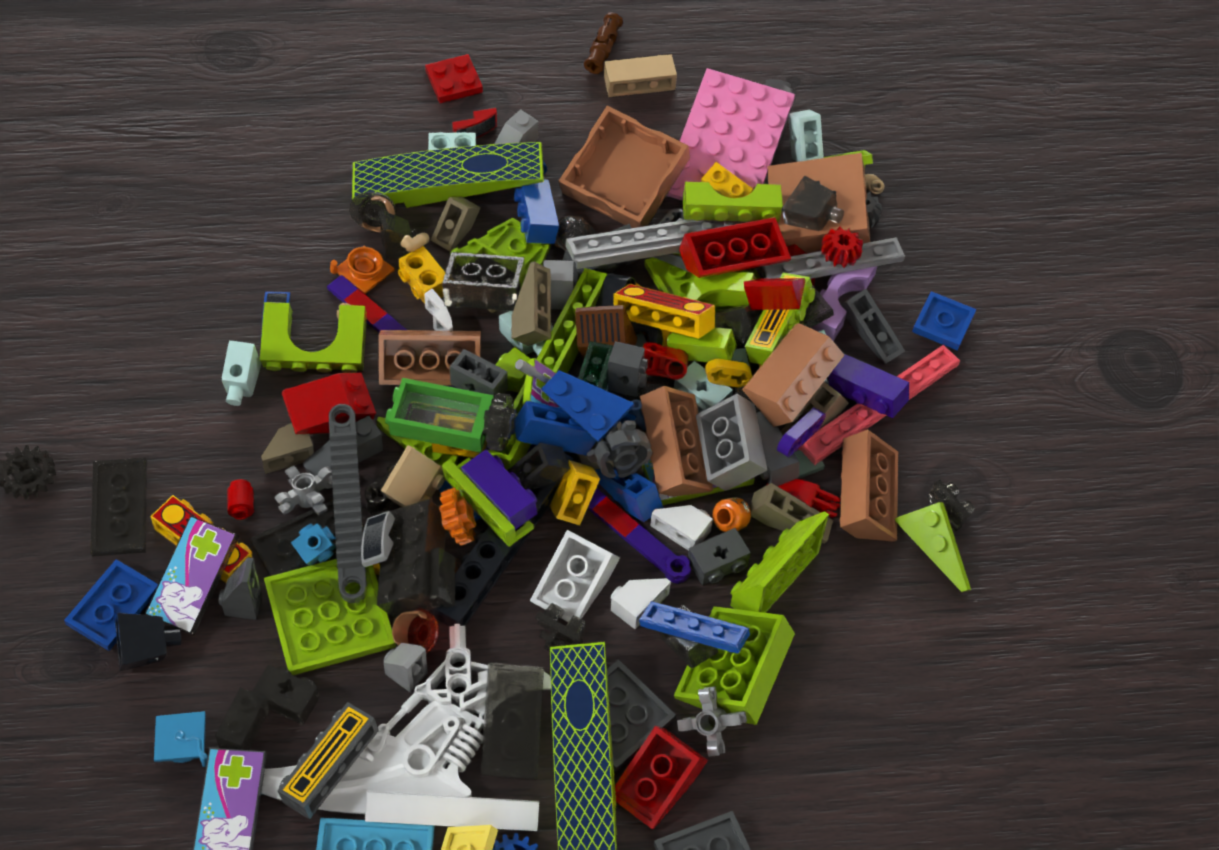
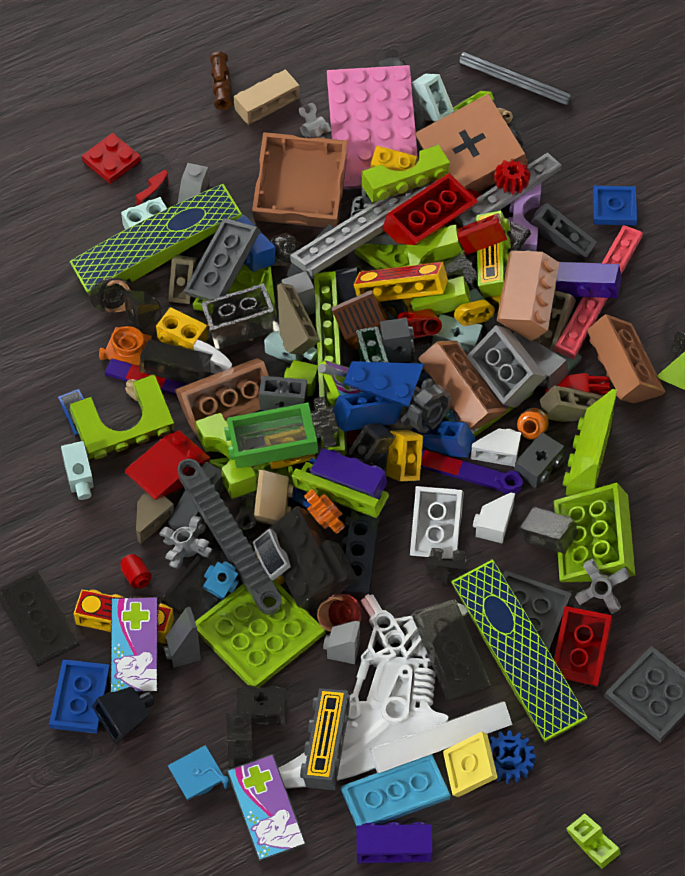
camera: 20 degrees left, 0 degrees up
(389, 447) = (212, 437): none -> lime arch
(397, 302) = (174, 362): none -> clear smoke brick
(412, 244) = (162, 308): tan arm -> none
(498, 218) = (222, 260): none -> dark grey plate
(669, 122) = (315, 126): none -> light grey pin
(694, 627) = (554, 519): blue tile -> none
(801, 432) = (556, 336): dark purple beam -> none
(811, 206) = (472, 152): clear smoke torso -> none
(908, 151) = (515, 78): none -> dark grey axle

